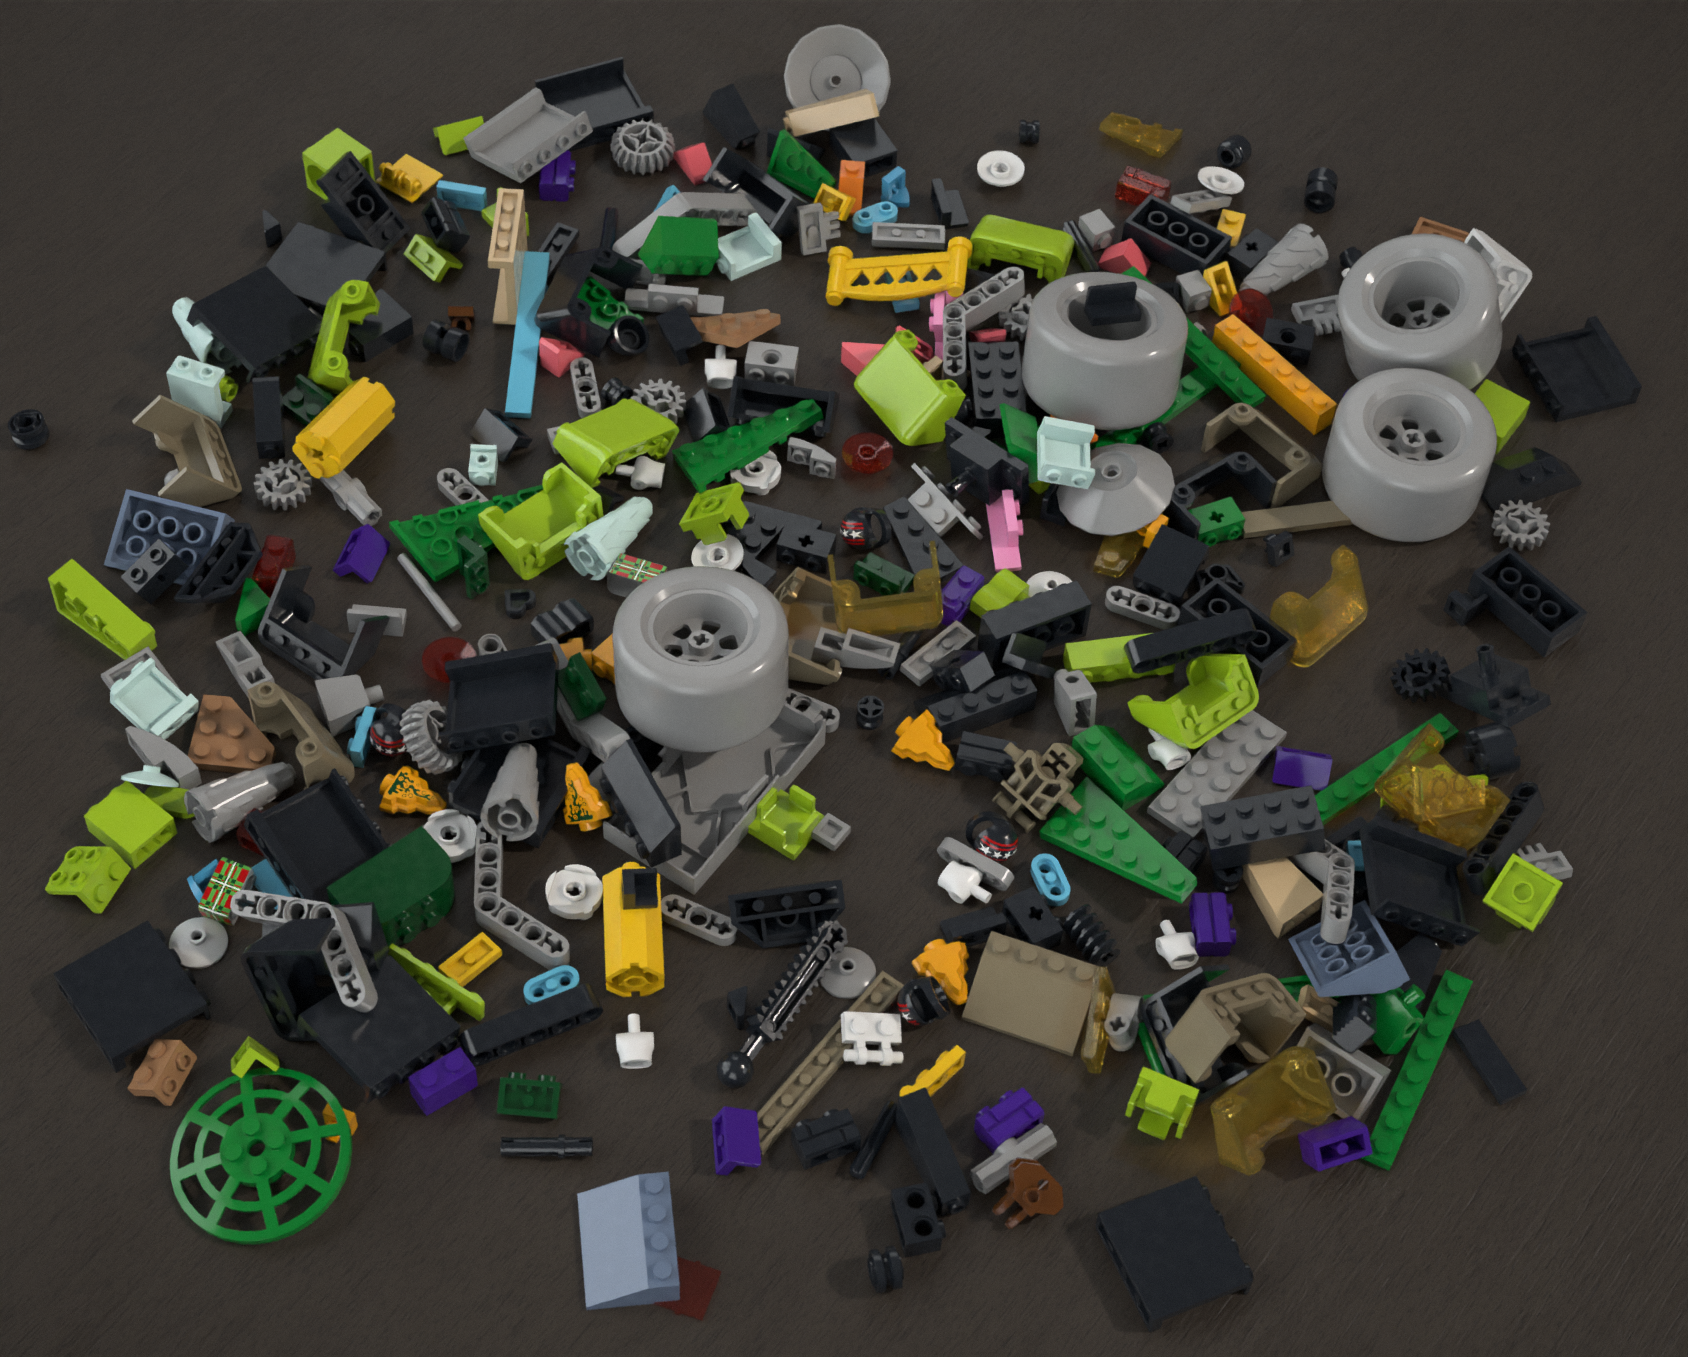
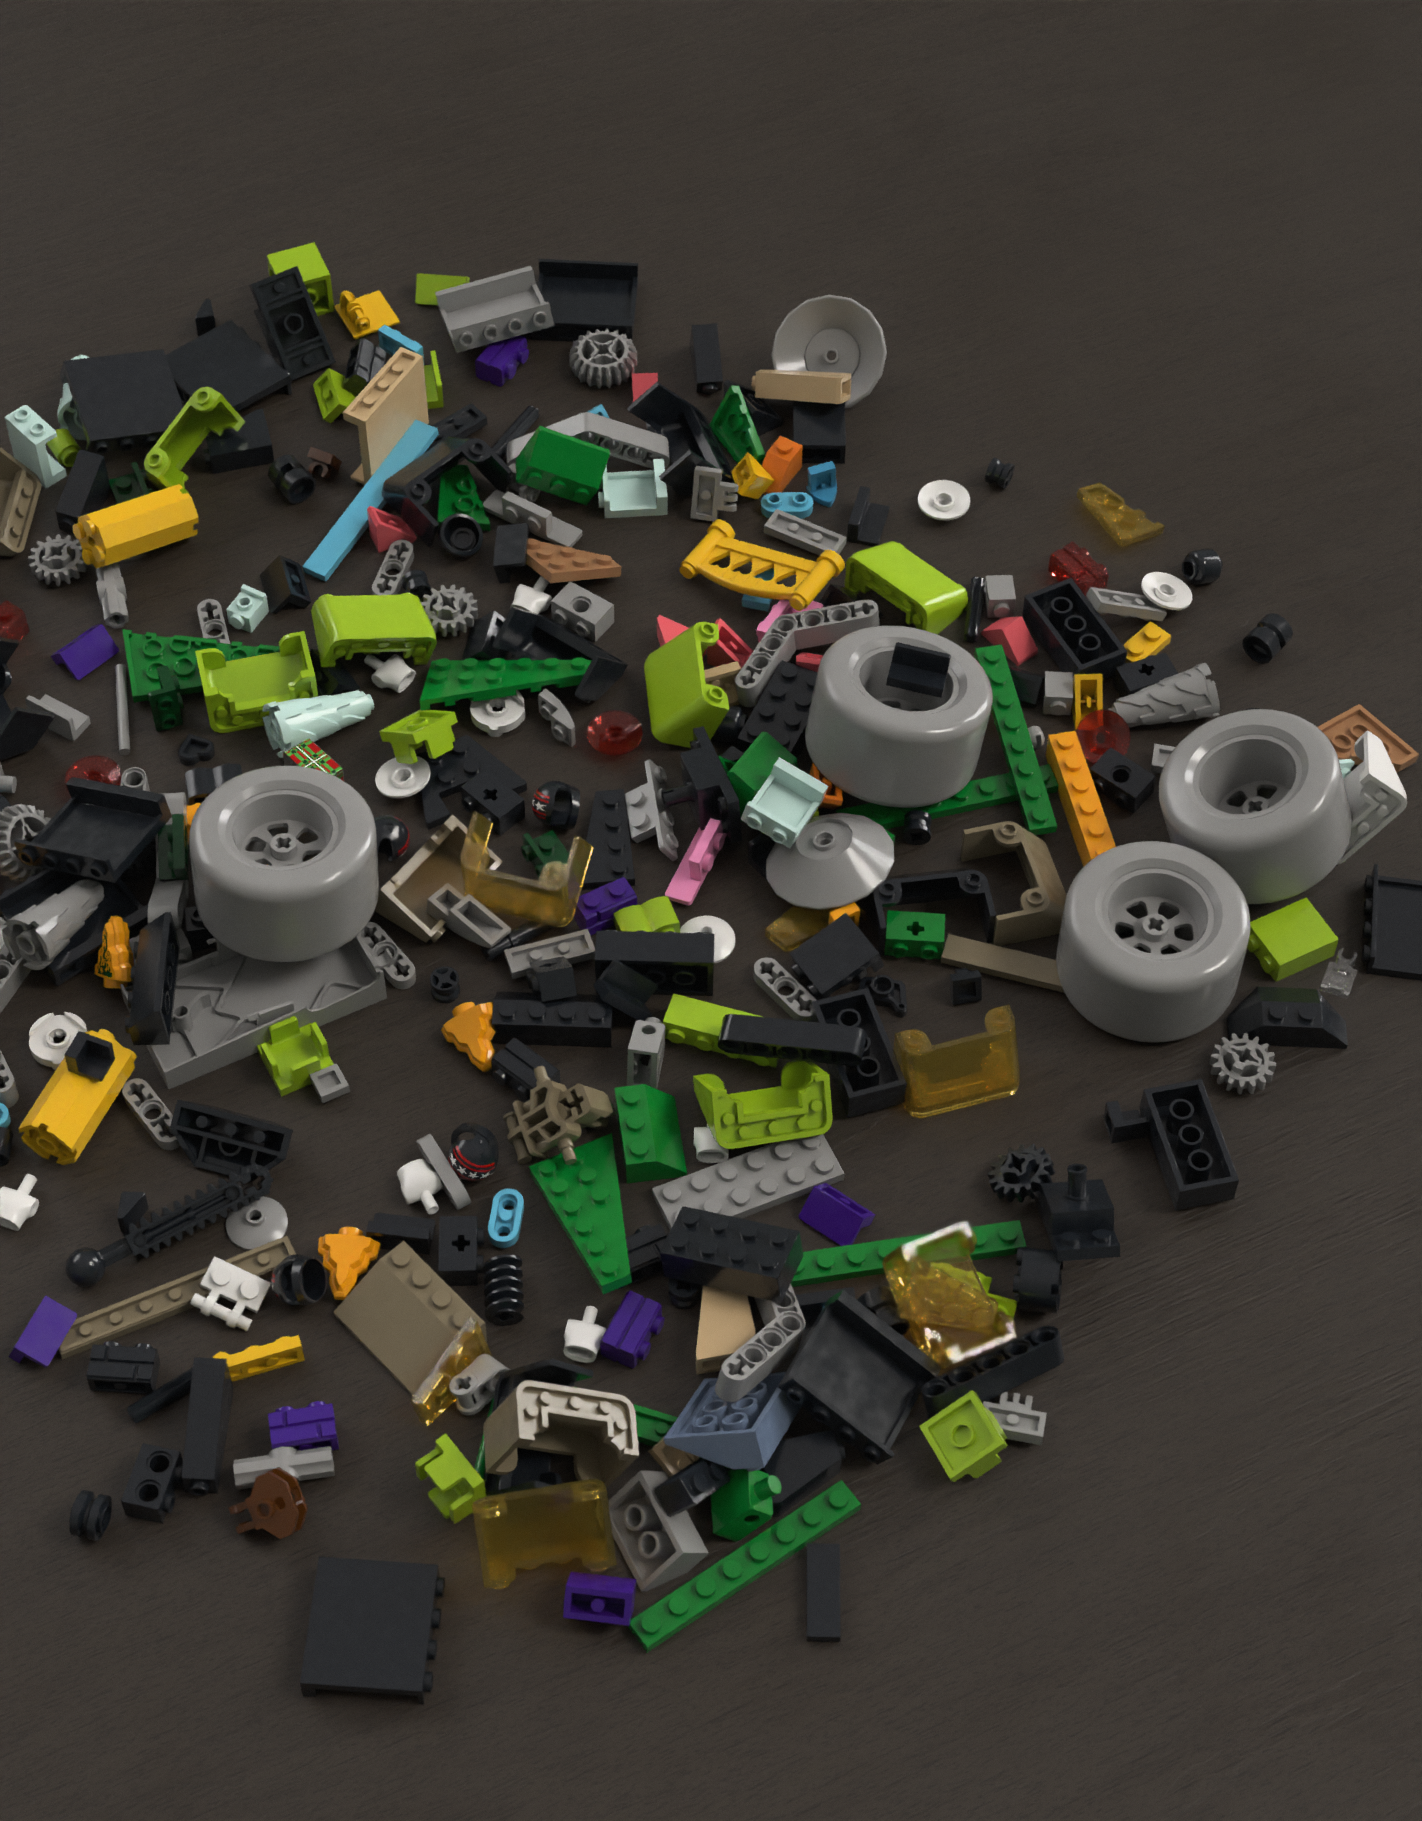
camera: 30 degrees right, 0 degrees up
(1543, 432) = (1340, 976): none -> clear plate

